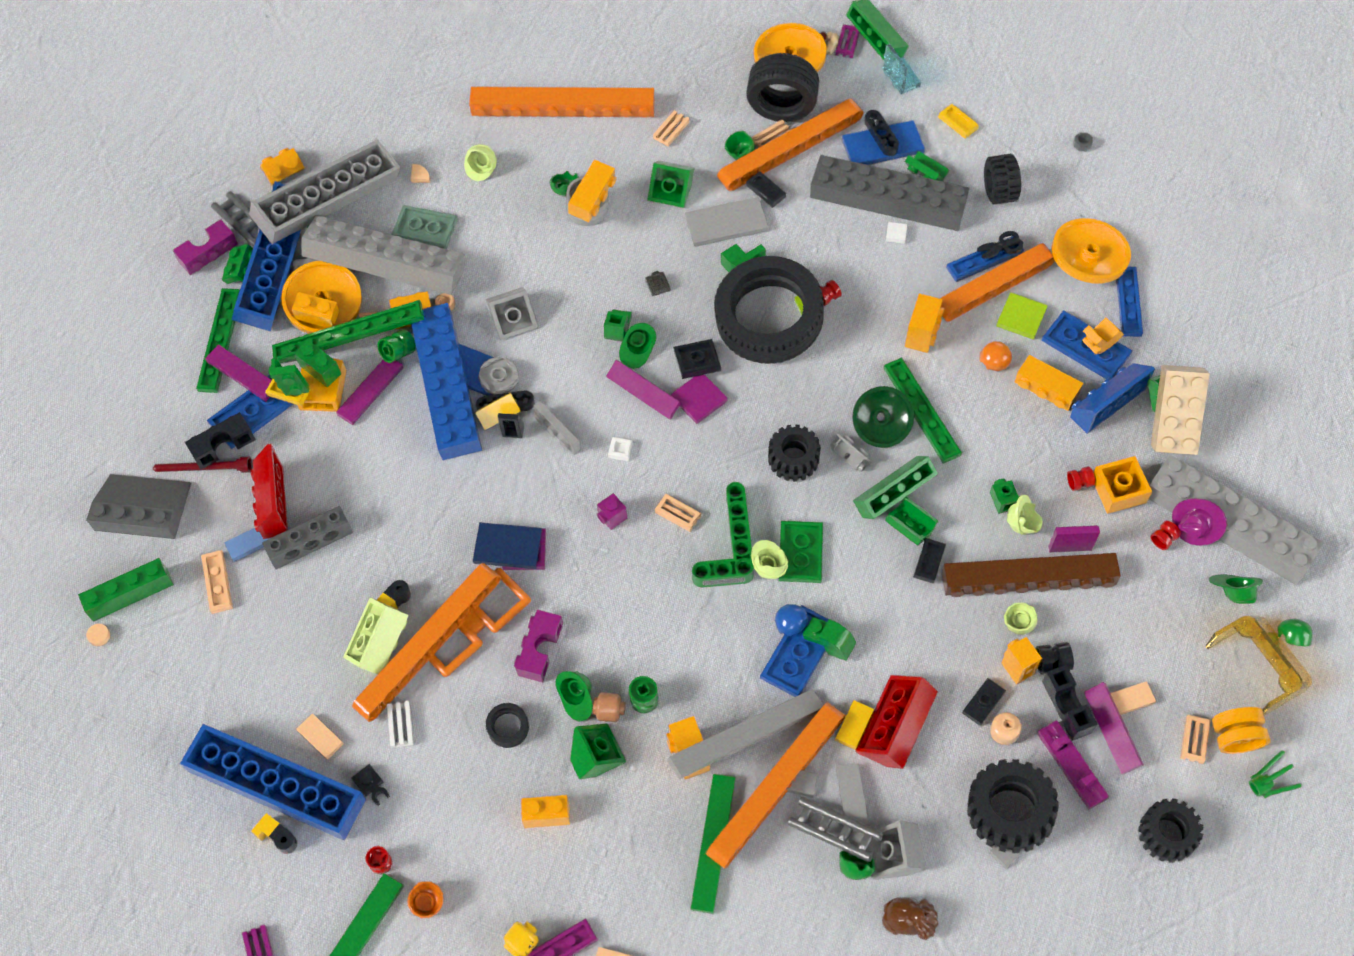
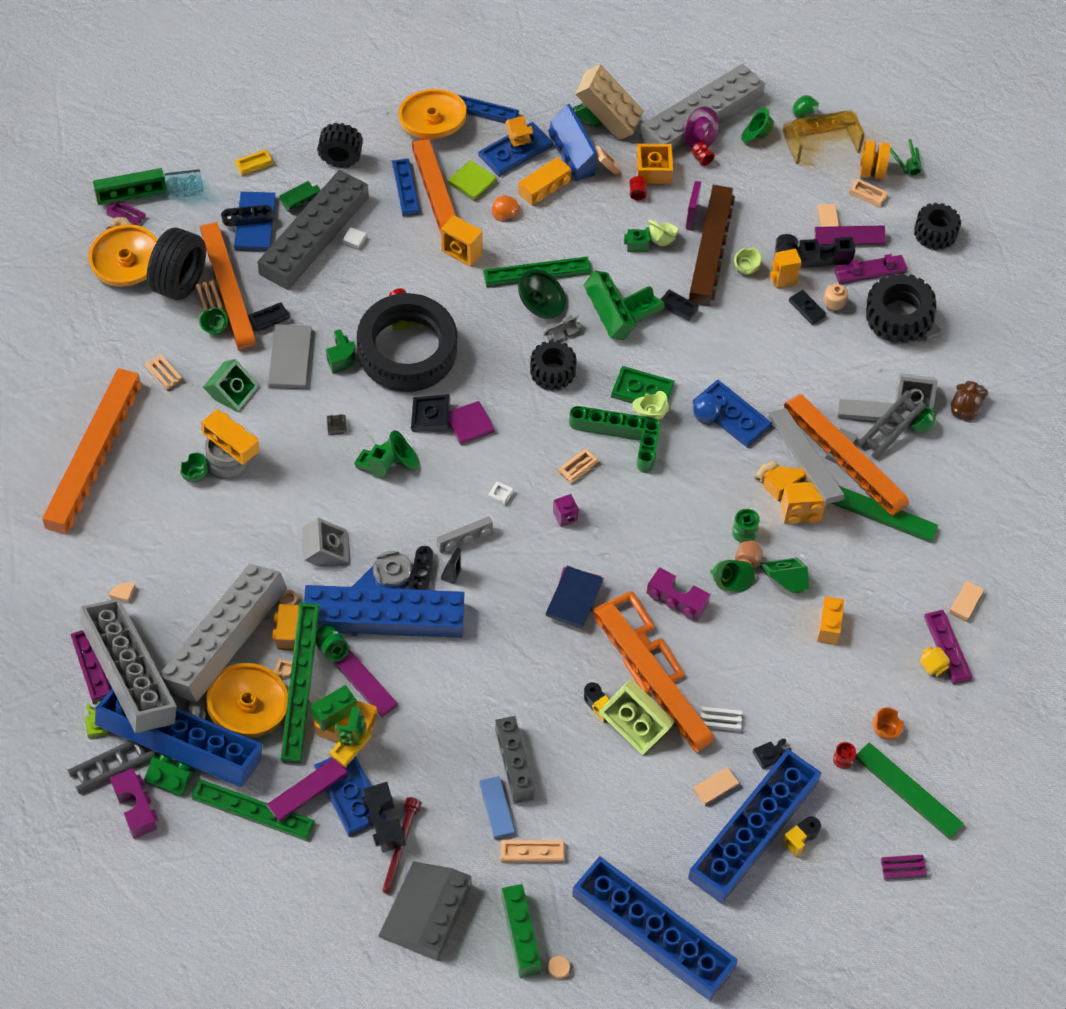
camera: 80 degrees left, 5 degrees down
(141, 709) = (654, 928): none -> blue brick
(269, 494) = (460, 779): red slope -> none
(281, 166) = (56, 715): light orange bracket -> none
(315, 310) = (268, 701): light orange brick -> none
(425, 226) = (190, 600): sand green tile -> none
(480, 162) = (138, 532): yellowish green piece -> none
(489, 413) = (432, 573): yellow tile -> none
(495, 713) = (742, 647): black tyre -> none
(643, 389) = (447, 460): magenta tile -> none
(715, 718) = (775, 479): none -> light orange slope
(733, 702) = (759, 477): none -> tan arm
(832, 635) = (731, 383): green brick -> none
(854, 724) = (798, 386): yellow tile -> none
(897, 720) = (810, 364): red slope -> none
(995, 248) = (403, 172): black piece -> none
(1083, 141) = (316, 87): dark grey tile -> none
(1101, 433) = (607, 160): none -> light nougat tile

